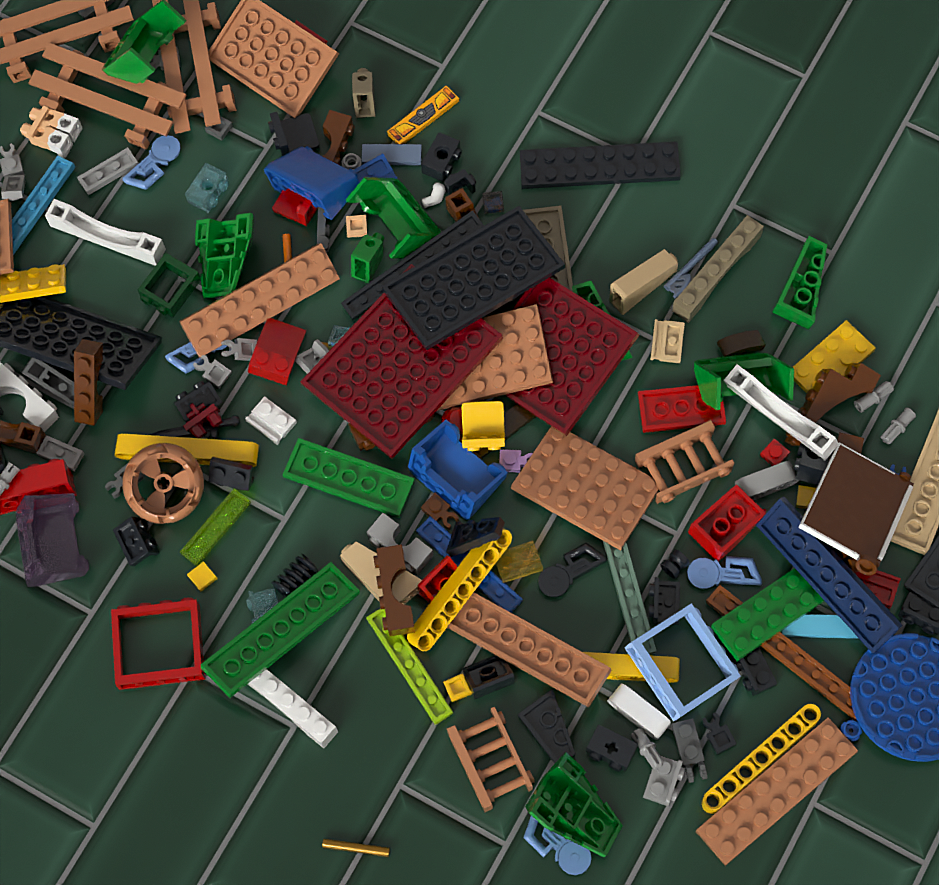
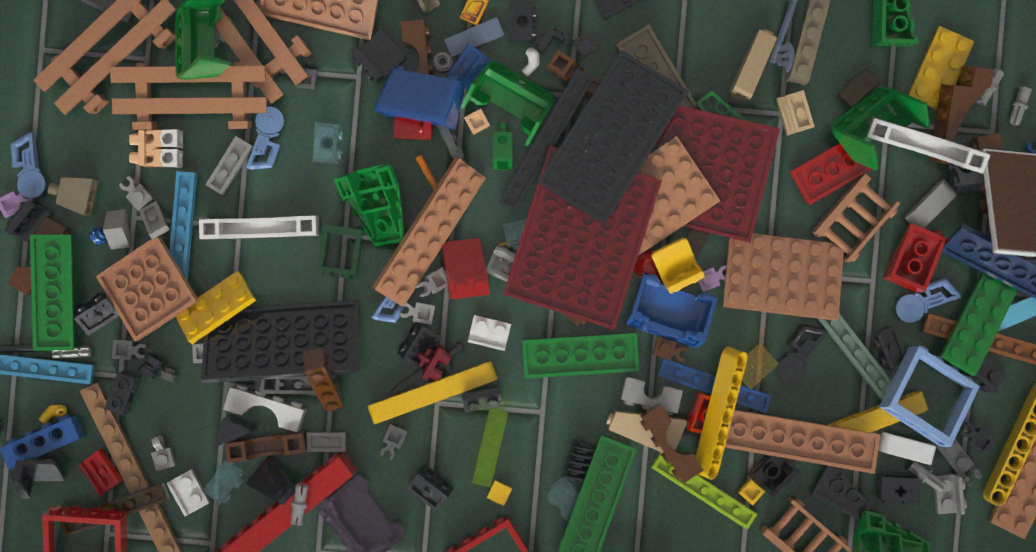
camera: 30 degrees left, 20 degrees up
(154, 507) = (419, 424): nougat wheel -> none
(474, 534) = (714, 366): black wing -> none
(674, 564) = (884, 311): black wheel -> none
(775, 453) = (926, 175): red plate -> none
(804, 496) = (968, 203): yellow tile -> none

